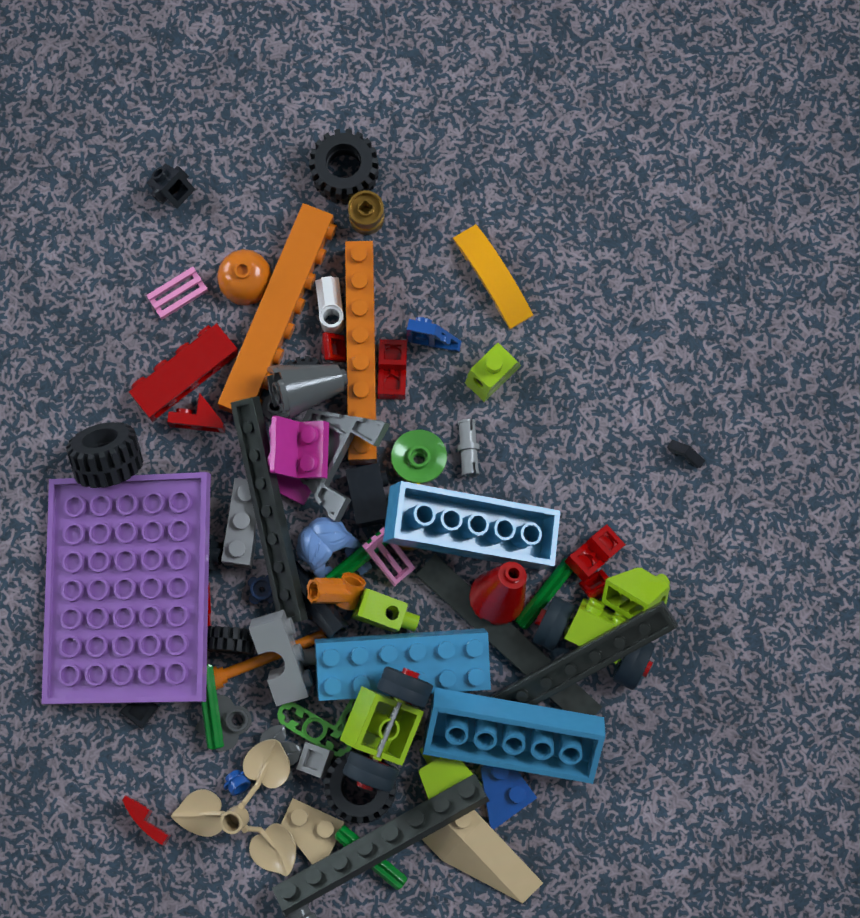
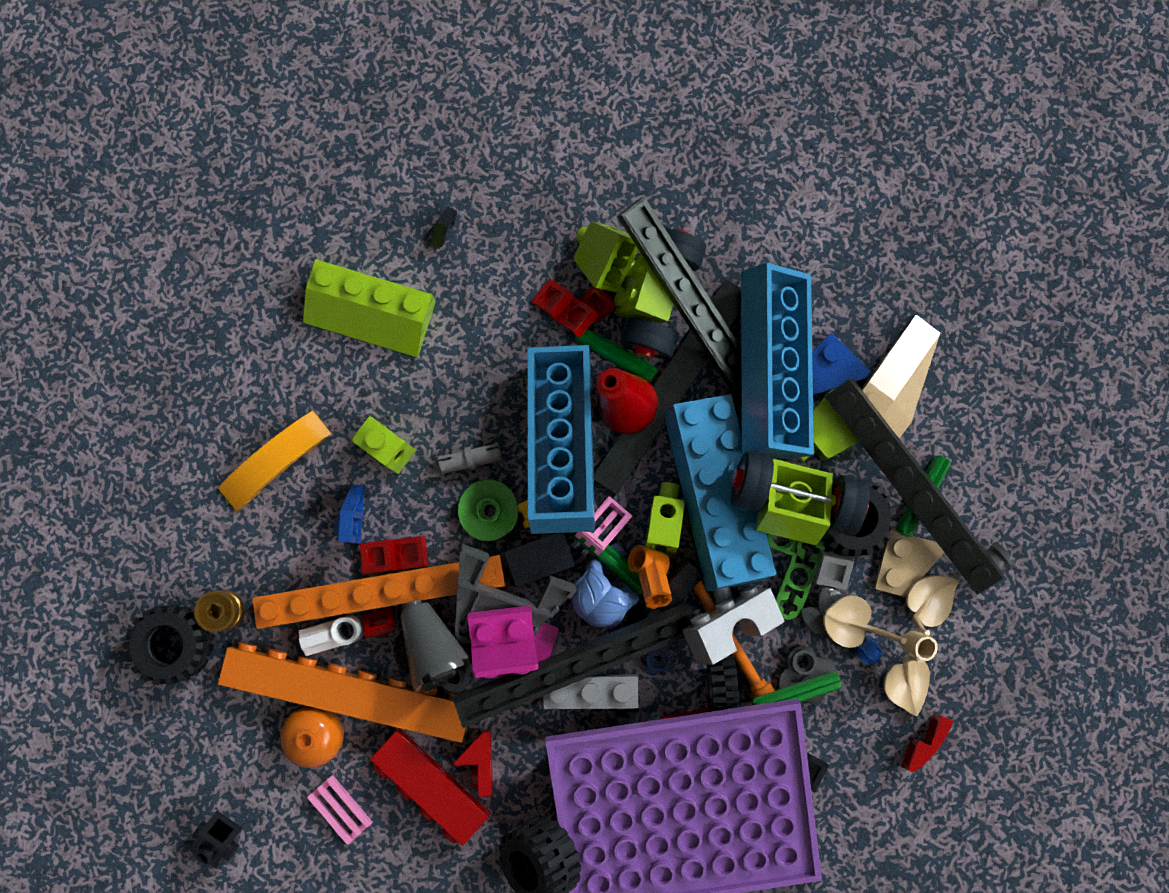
camera: 100 degrees left, 5 degrees up
(618, 375) = (367, 308): none -> lime slope

